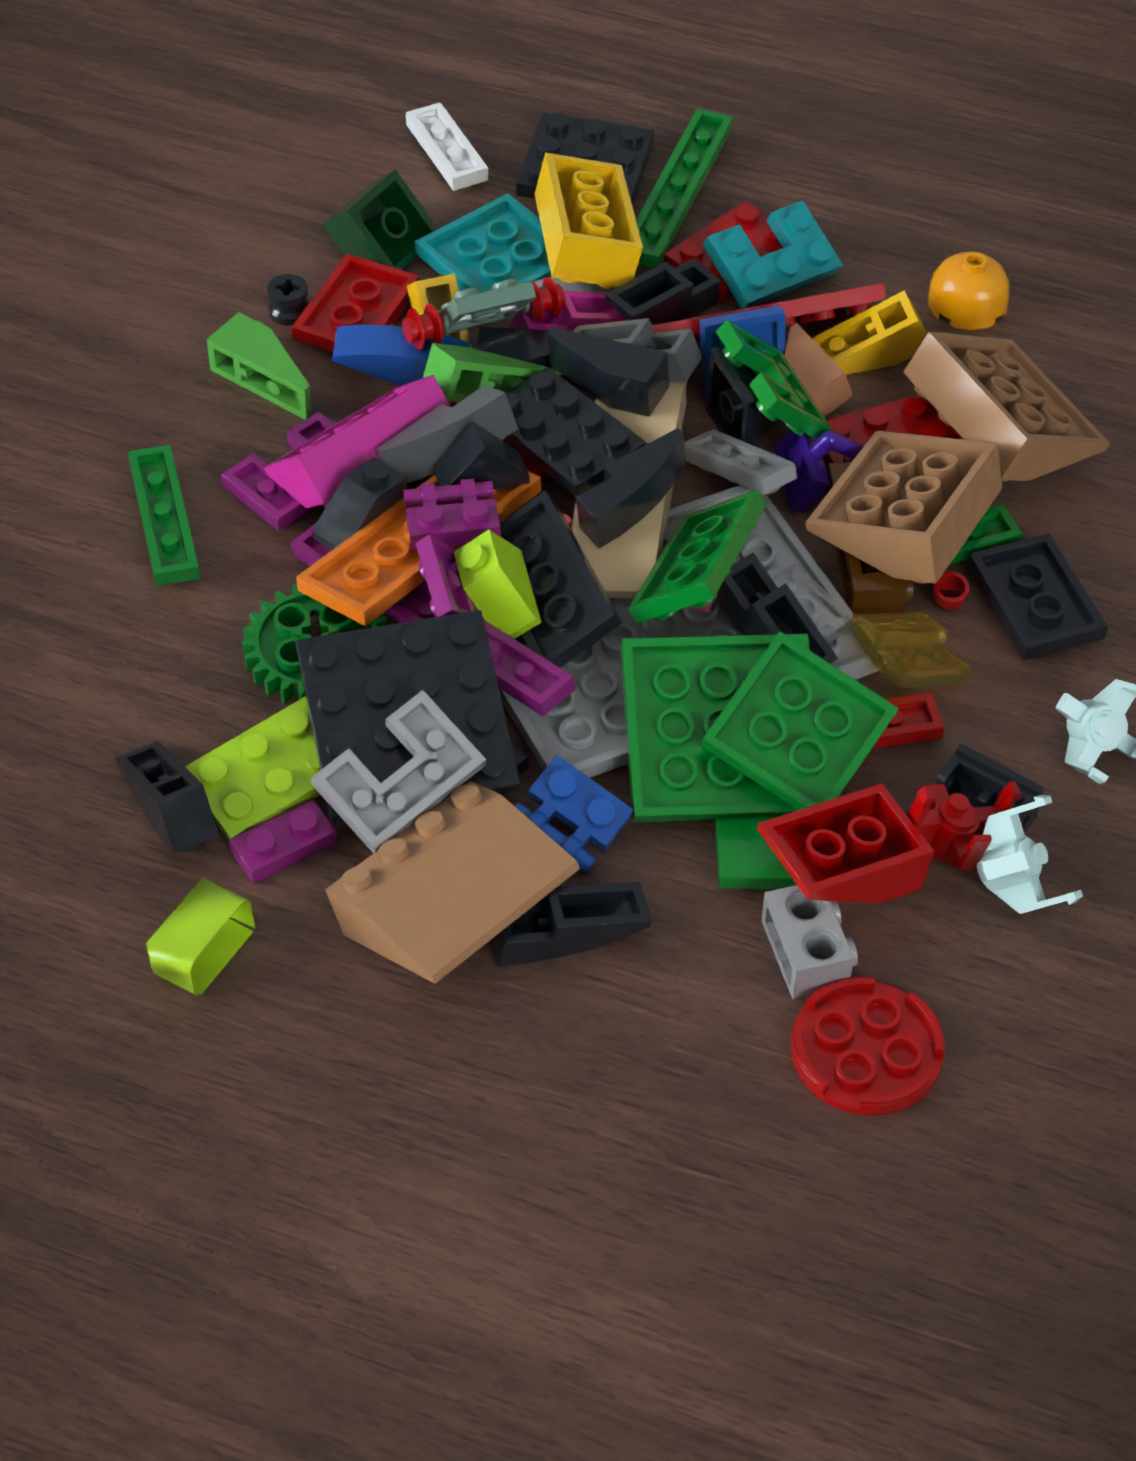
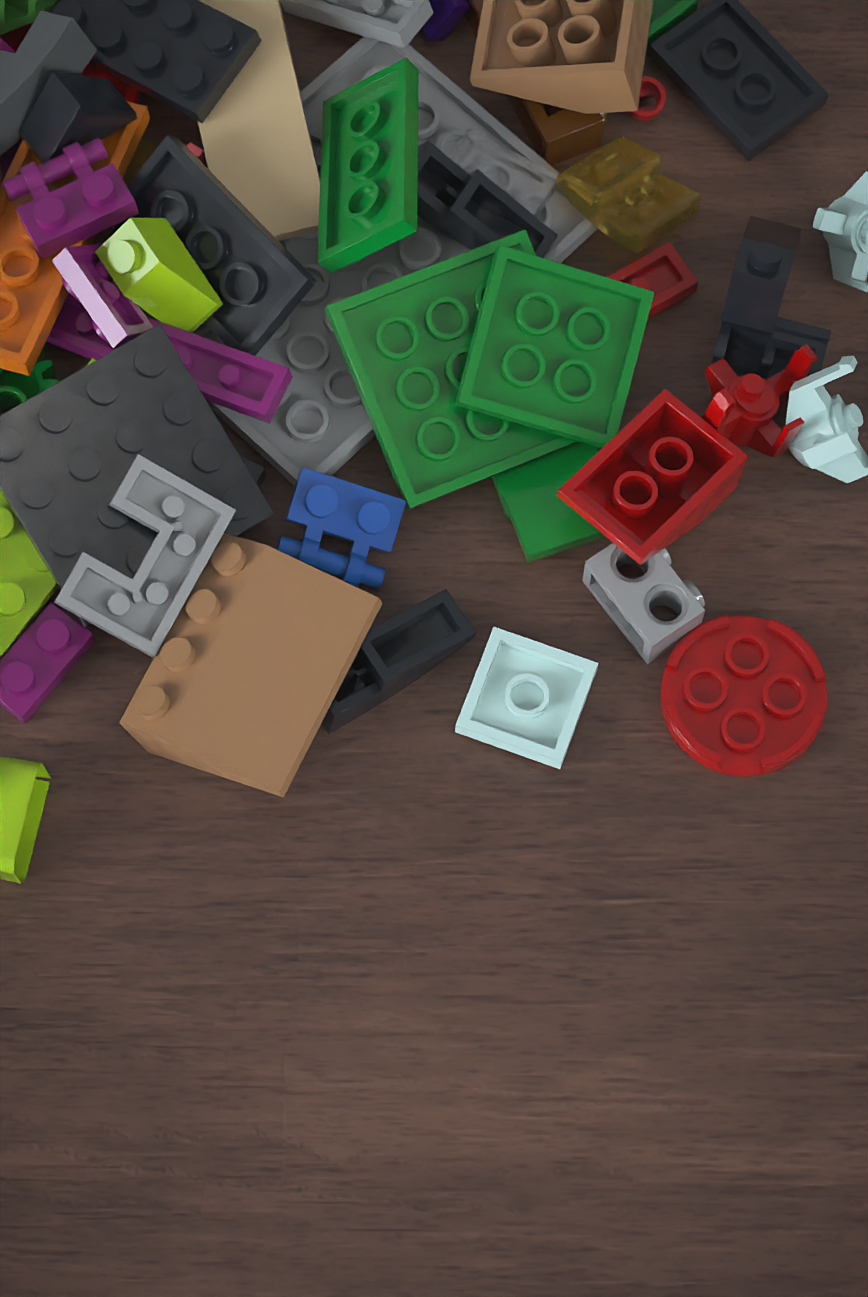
camera: 20 degrees left, 20 degrees up
(631, 488) = (261, 99): black slope -> none
(675, 986) = (526, 697): none -> light aqua plate
(995, 729) = (760, 274): none -> black slope

